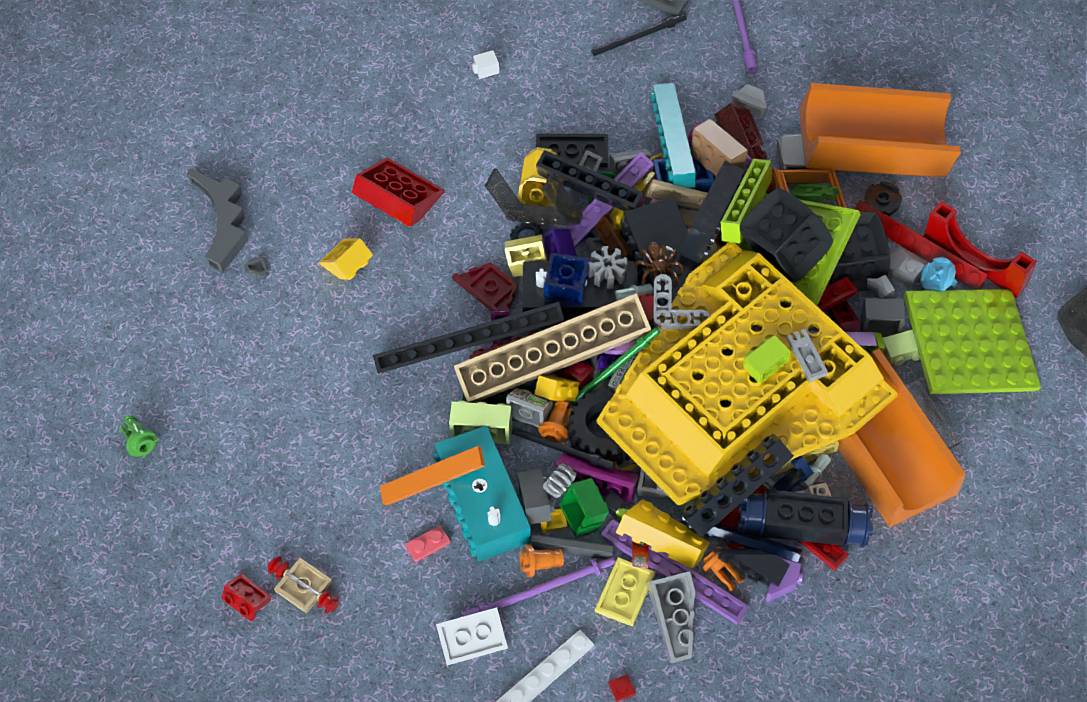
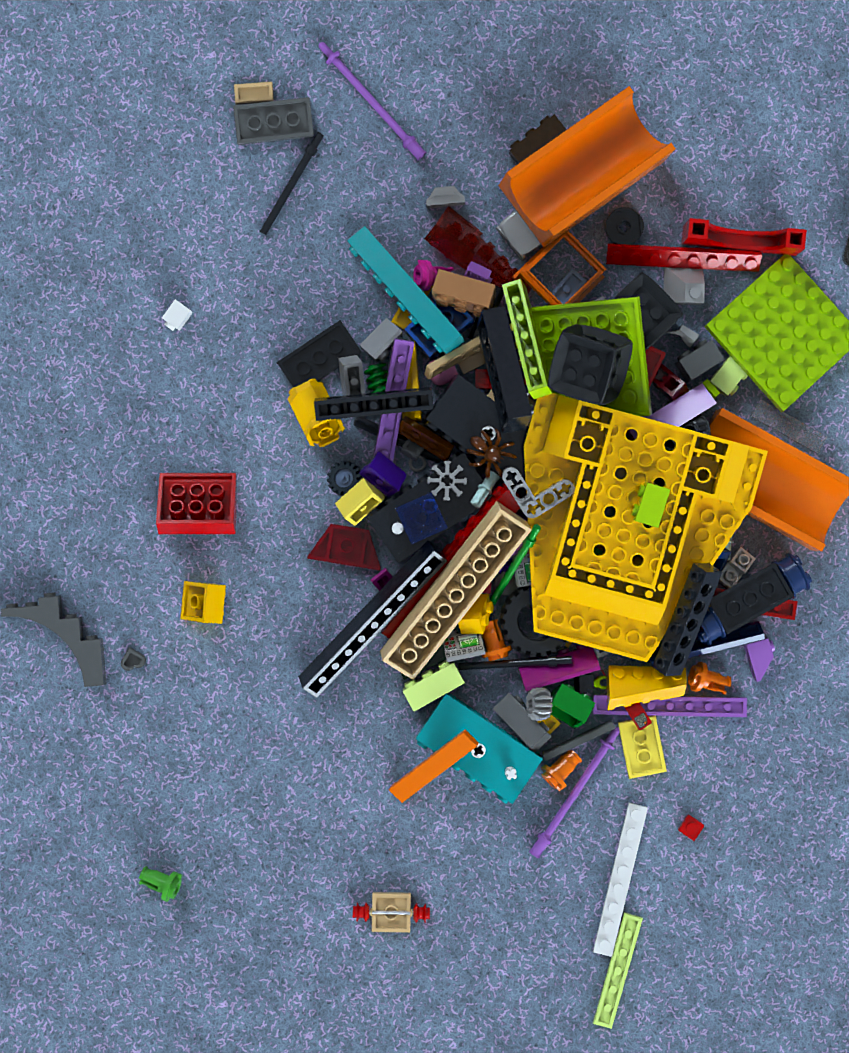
camera: 40 degrees left, 30 degrees up
(245, 596) = (353, 951): red bracket -> none
(427, 543) = (461, 811): coral plate -> none
(471, 636) = (552, 867): white plate -> none
(560, 213) = (337, 457): clear smoke windscreen -> none
(674, 611) = (690, 737): light grey wedge -> none
(759, 565) = (734, 669): black slope -> none
(807, 356) = (682, 479): light grey hinge -> none
(815, 192) = (562, 266): bright green plate -> none
(939, 275) = (722, 286): medium azure tile -> none

